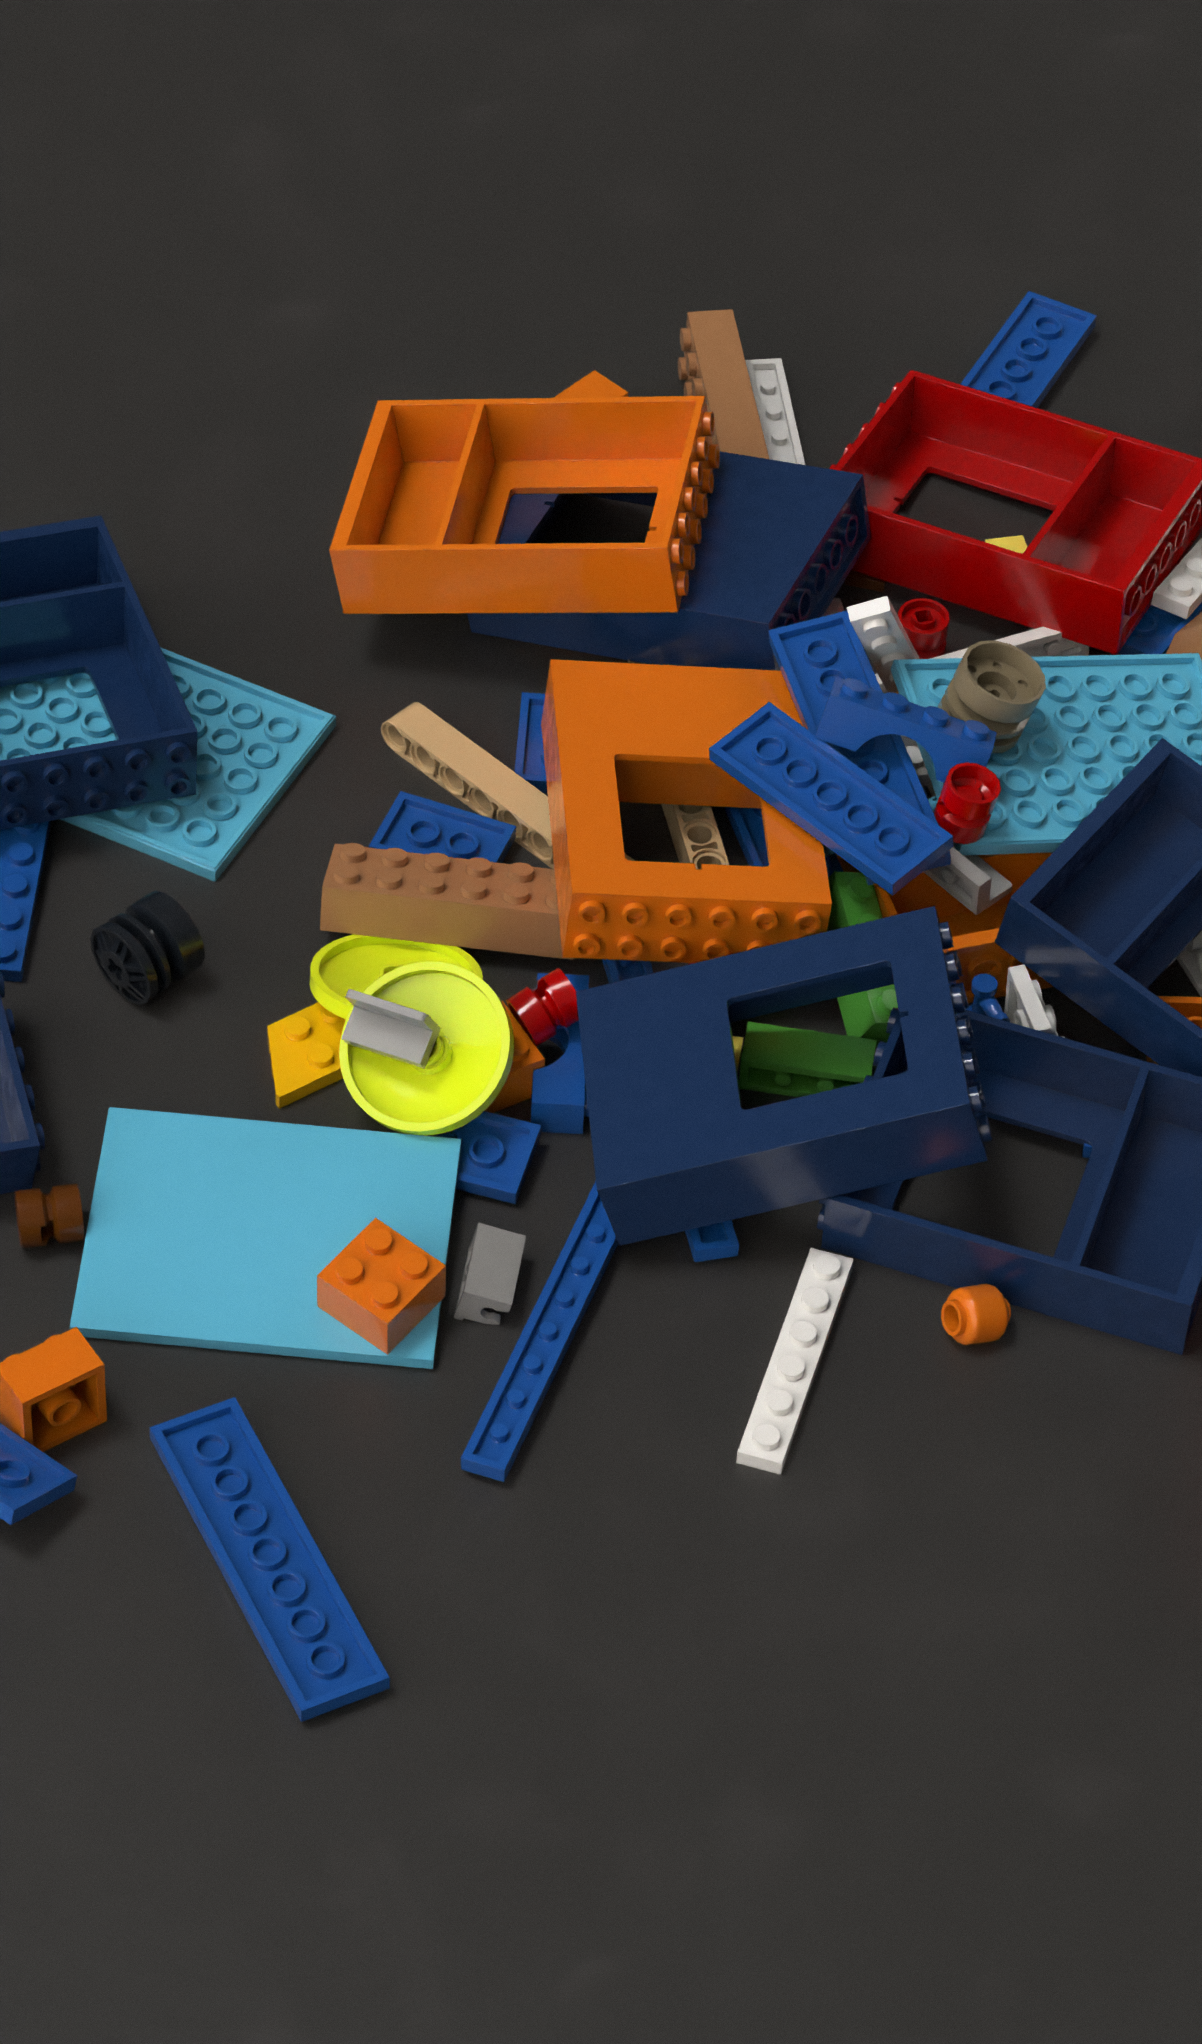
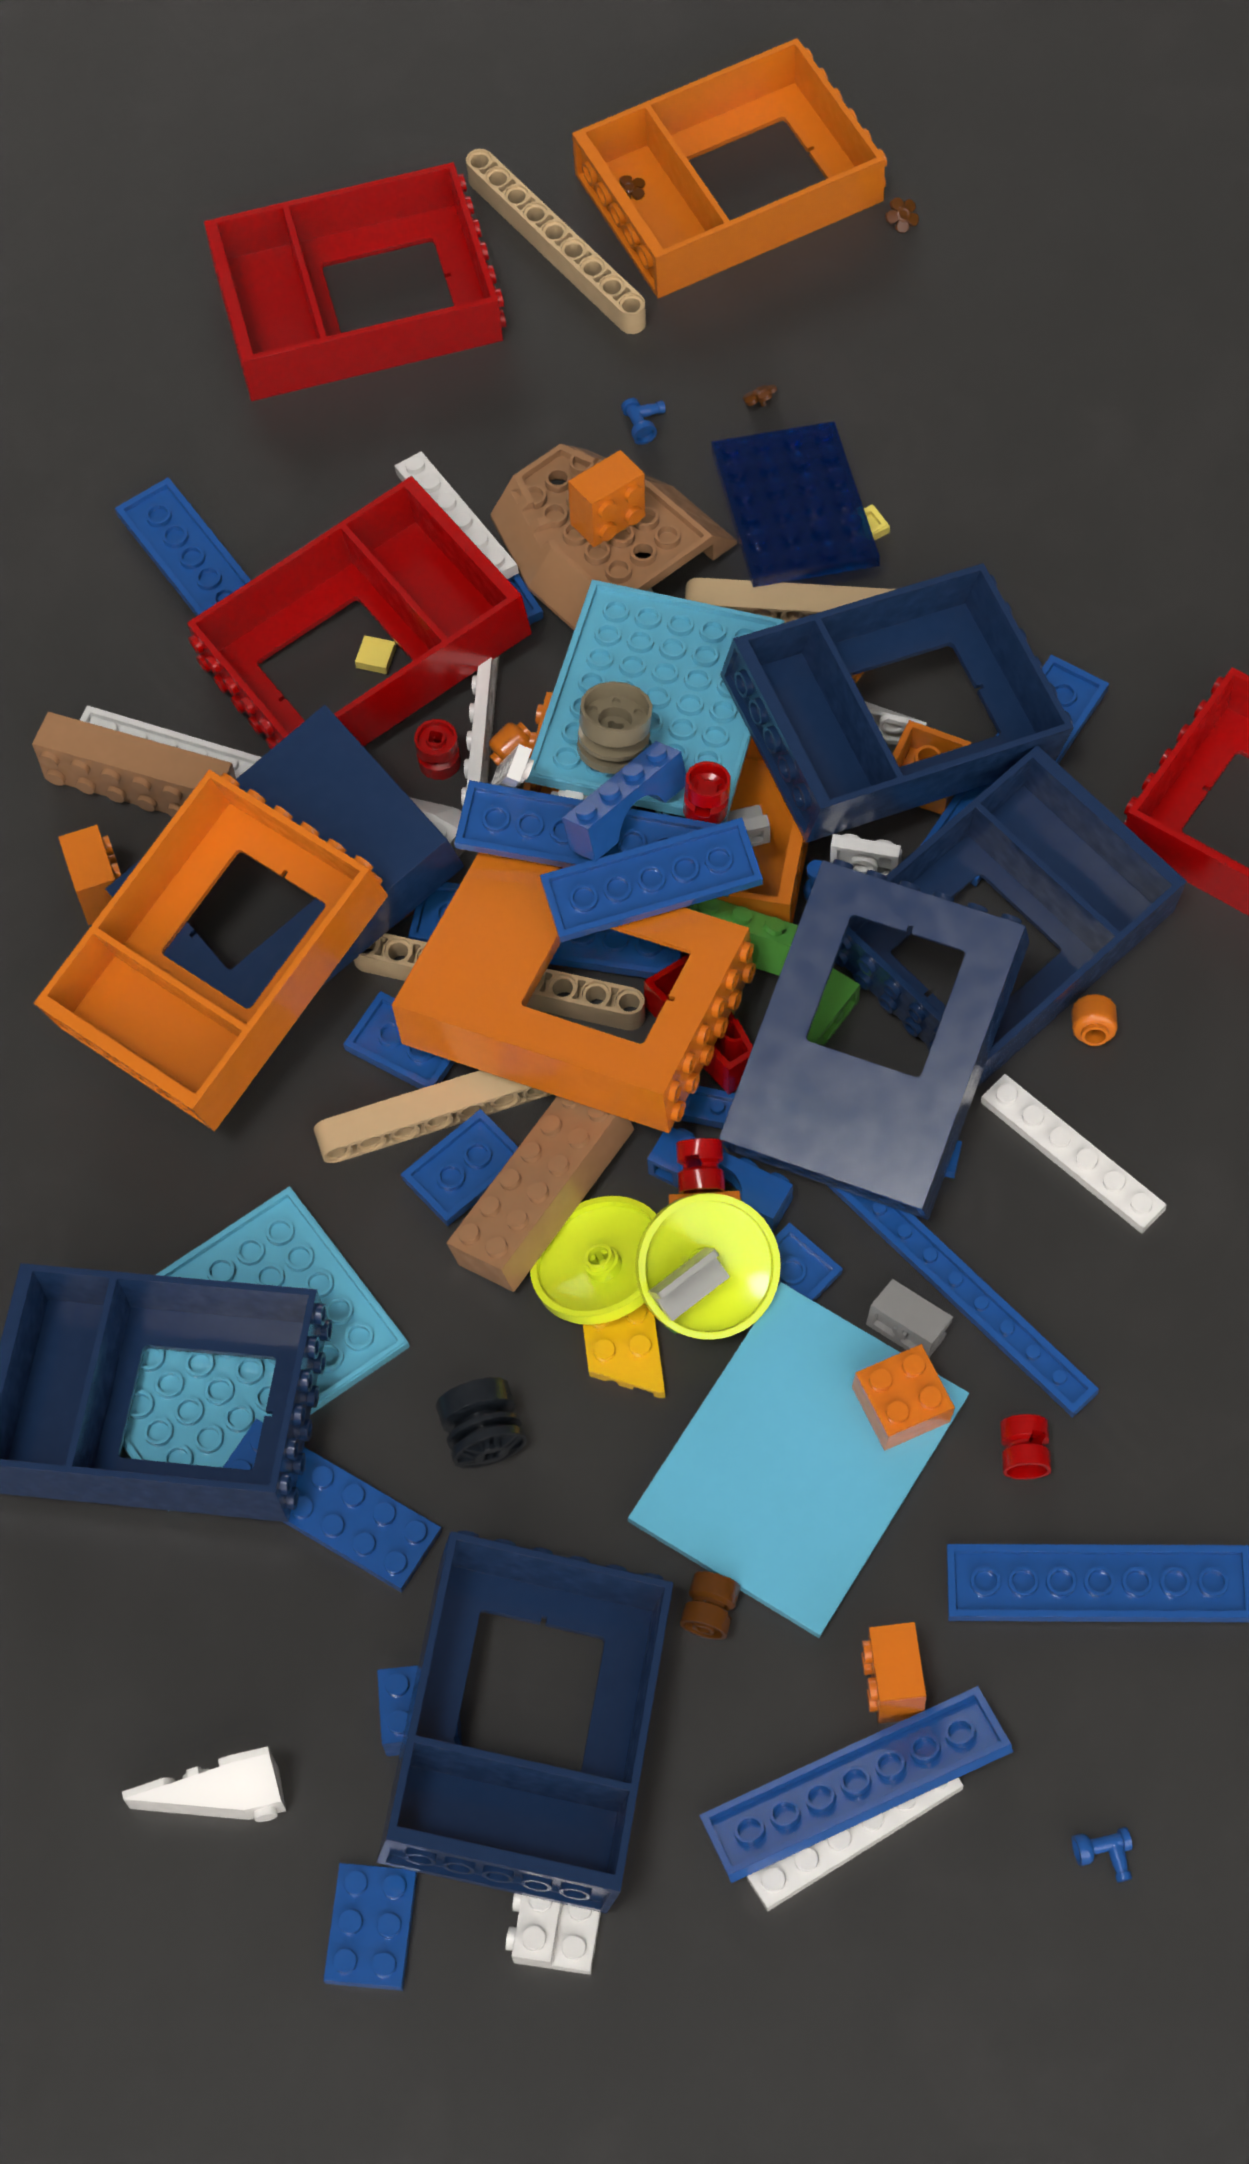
camera: 55 degrees left, 15 degrees up
(397, 1425) = (1025, 1447): none -> red wheel

